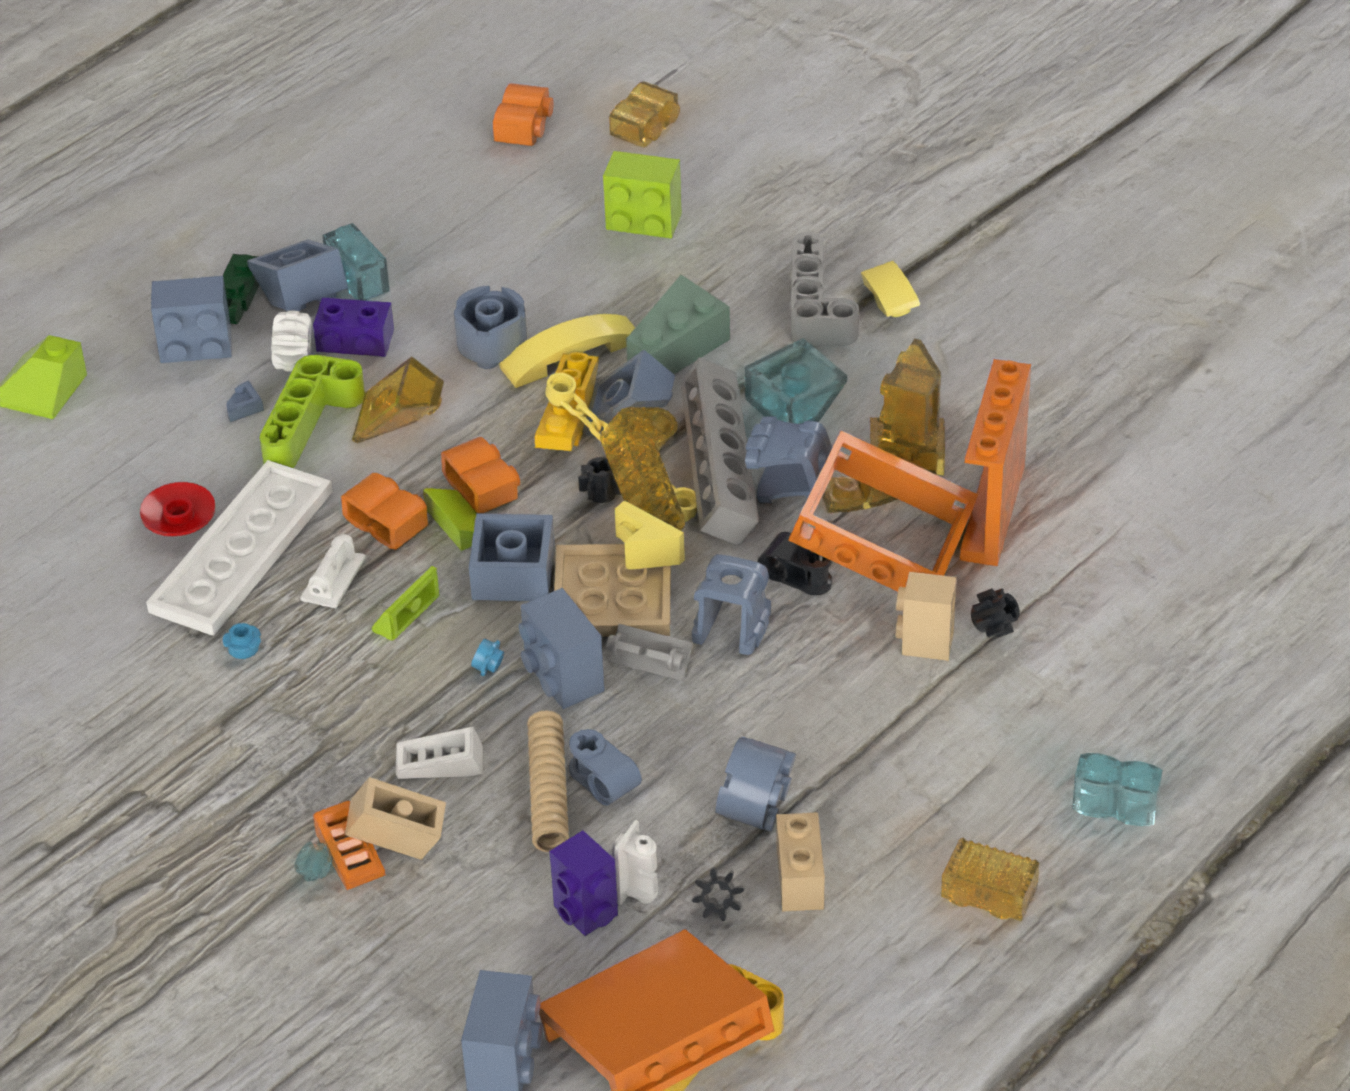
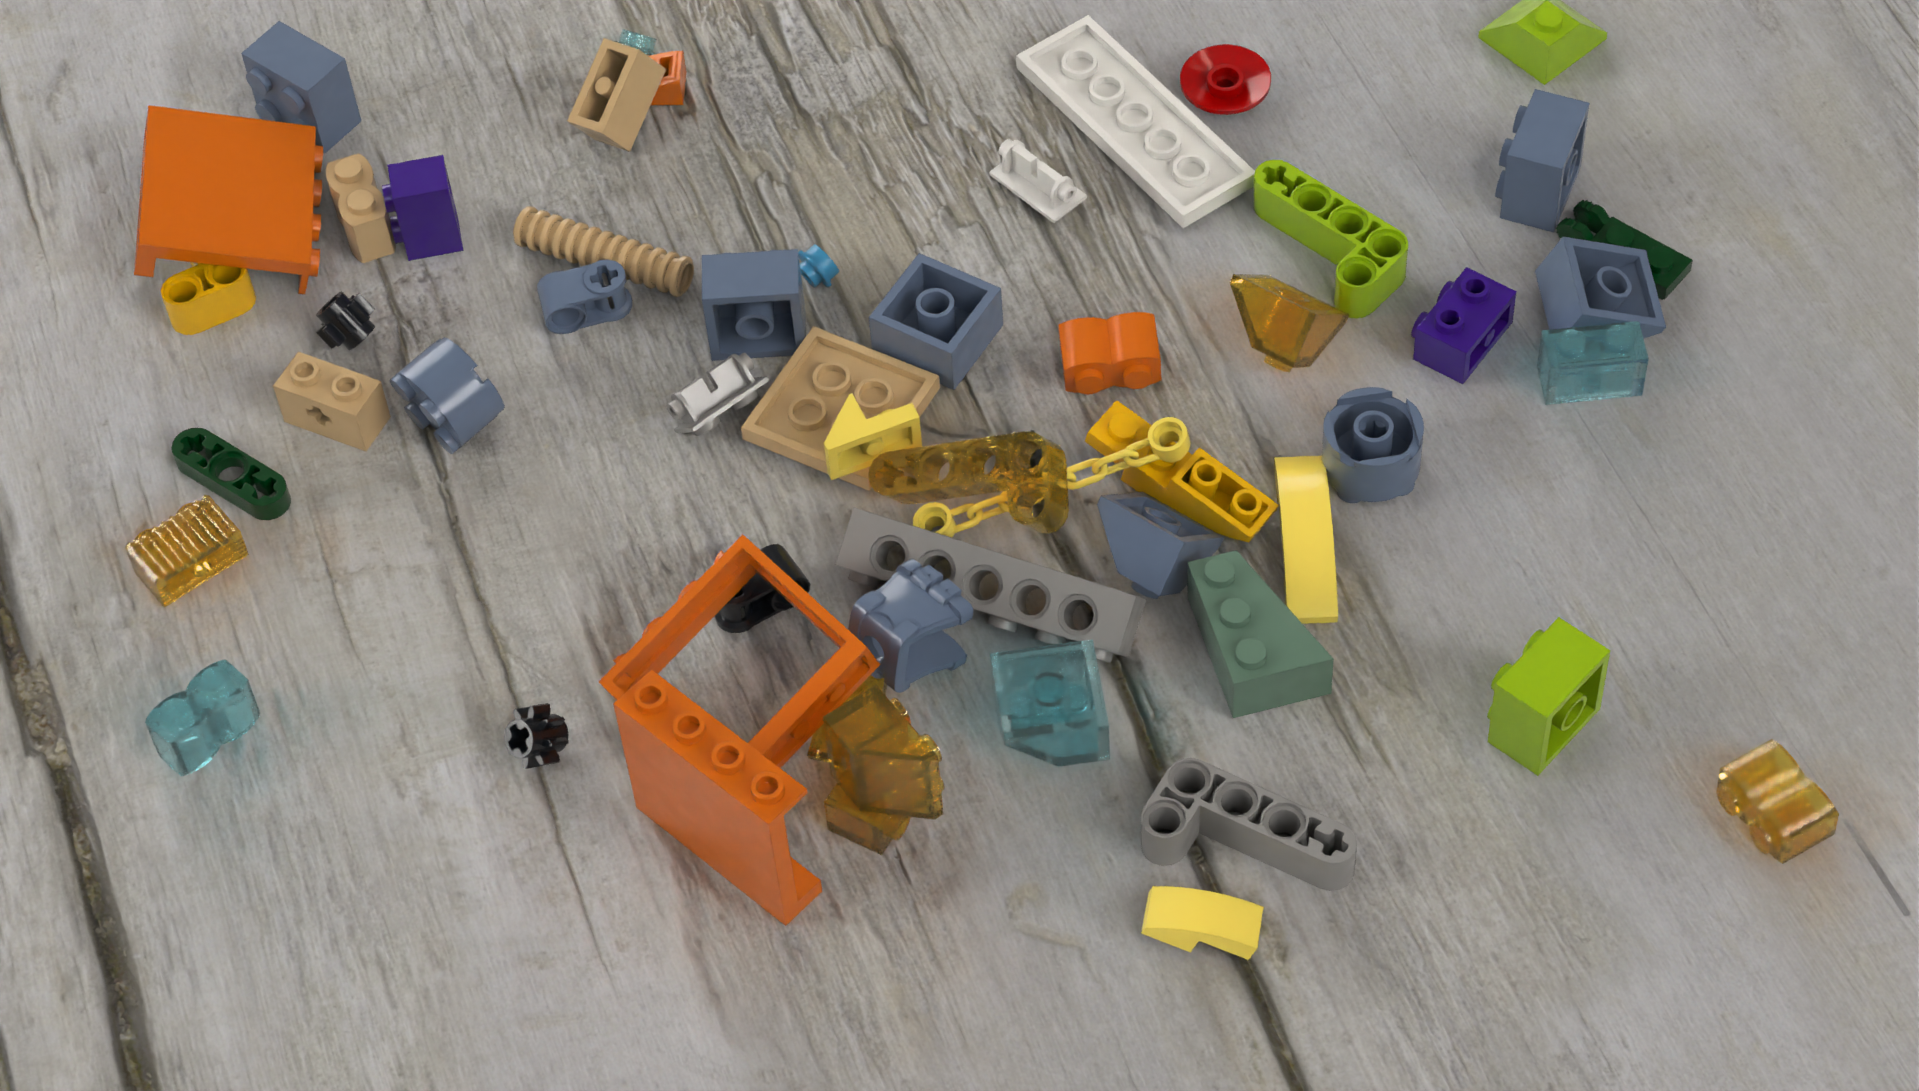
camera: 120 degrees right, 10 degrees up
(242, 640) = (990, 86): dark azure plate -> none
(244, 402) = (1398, 199): sand blue tile -> none
(290, 339) = (1453, 242): white gear -> none
(384, 510) = (1106, 250): orange brick -> none
(408, 606) = (945, 228): lime slope -> none
(451, 514) = (1042, 310): lime slope -> none
(464, 760) = (704, 192): white slope -> none
(522, 114) = (1852, 657): orange brick -> none
(598, 942) = (360, 208): none -> tan brick
(635, 866) = (413, 255): white hinge -> none
(748, 593) = (698, 486): sand blue piece -> none
(905, 917) = (237, 491): none -> dark green beam
(927, 615) = (559, 648): tan brick -> none

